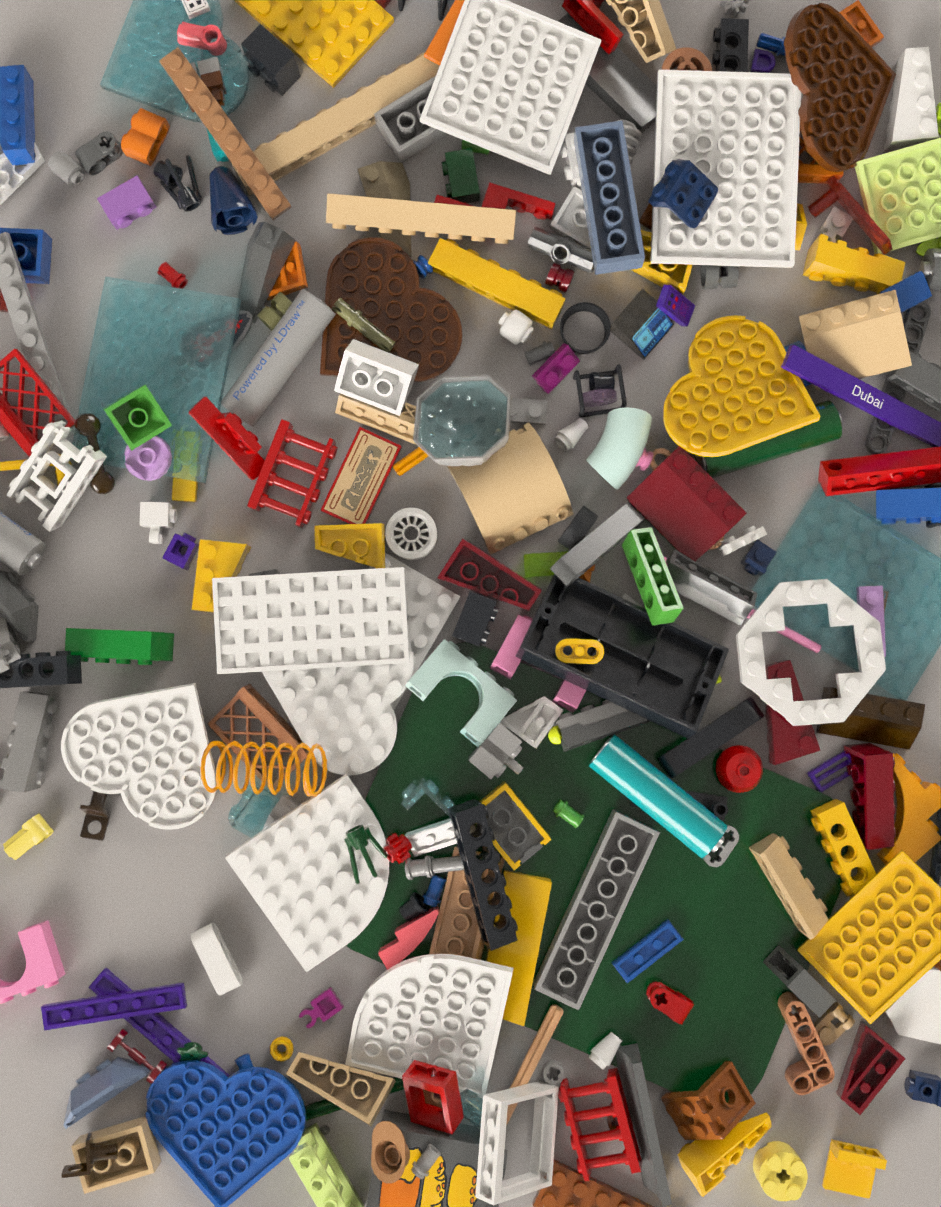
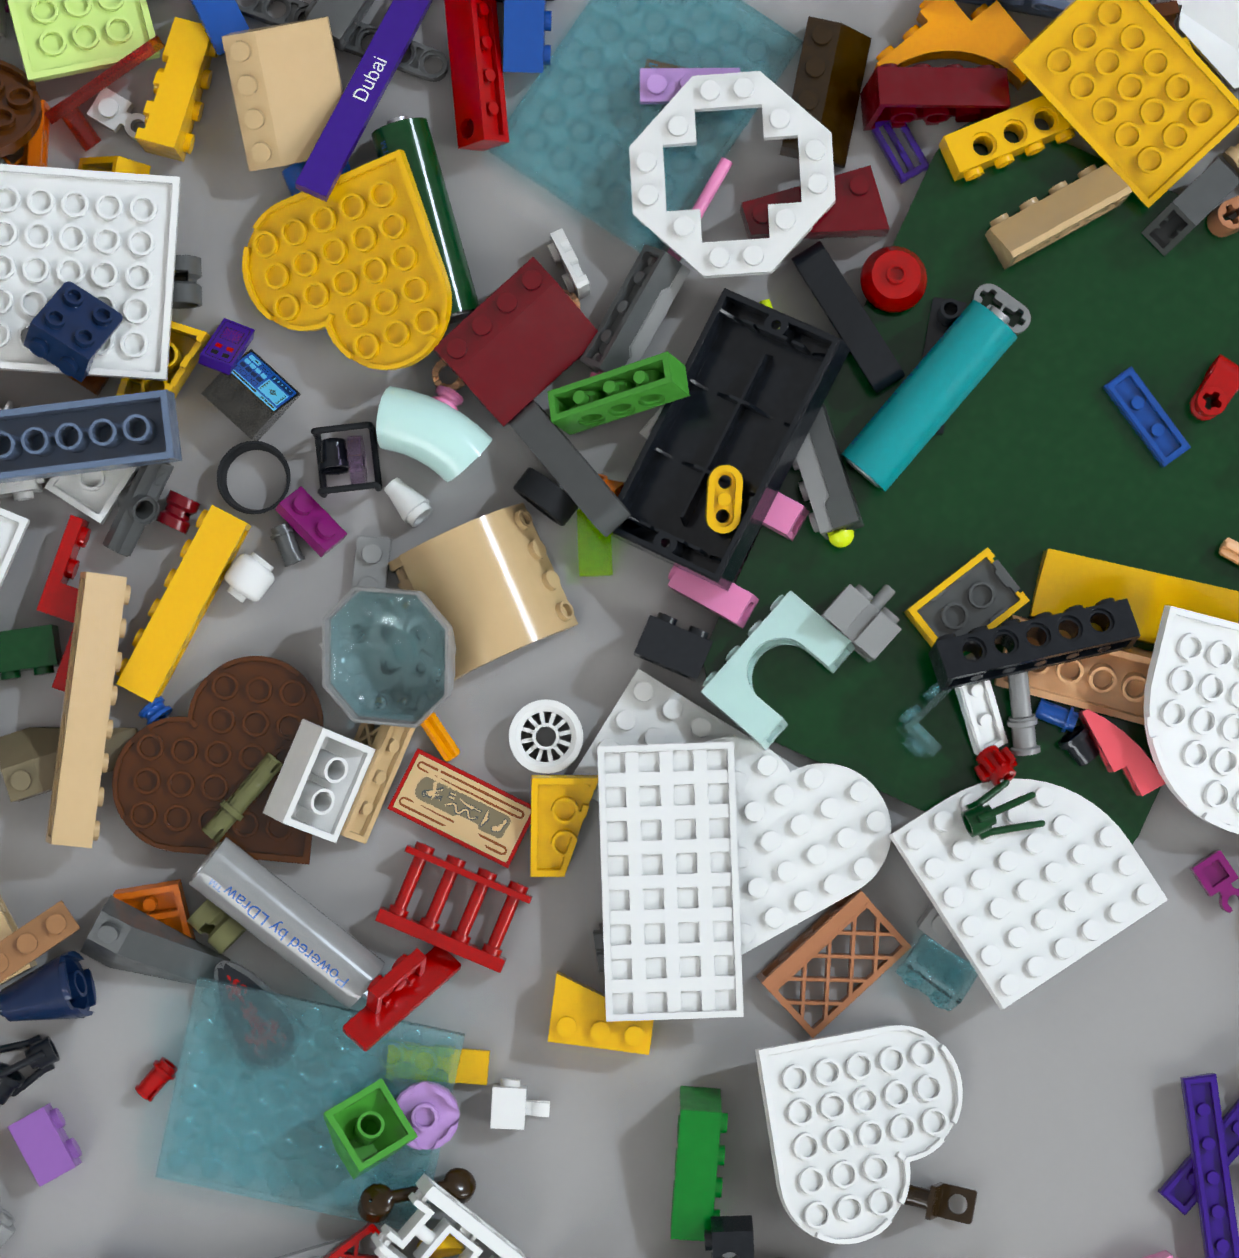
camera: 90 degrees left, 0 degrees up
(173, 551) = (567, 1082): dark purple brick -> none
(216, 959) = (1147, 1029): white beam -> none
(233, 773) = (886, 884): light orange piece -> none
(483, 573) = (607, 633): dark red wedge -> none
(533, 720) = (819, 568): white wing -> none
(568, 813) = (951, 523): bright green pin -> none
(595, 909) = (1085, 487): light grey brick -> none
(758, 558) = (594, 241): dark blue bracket -> none

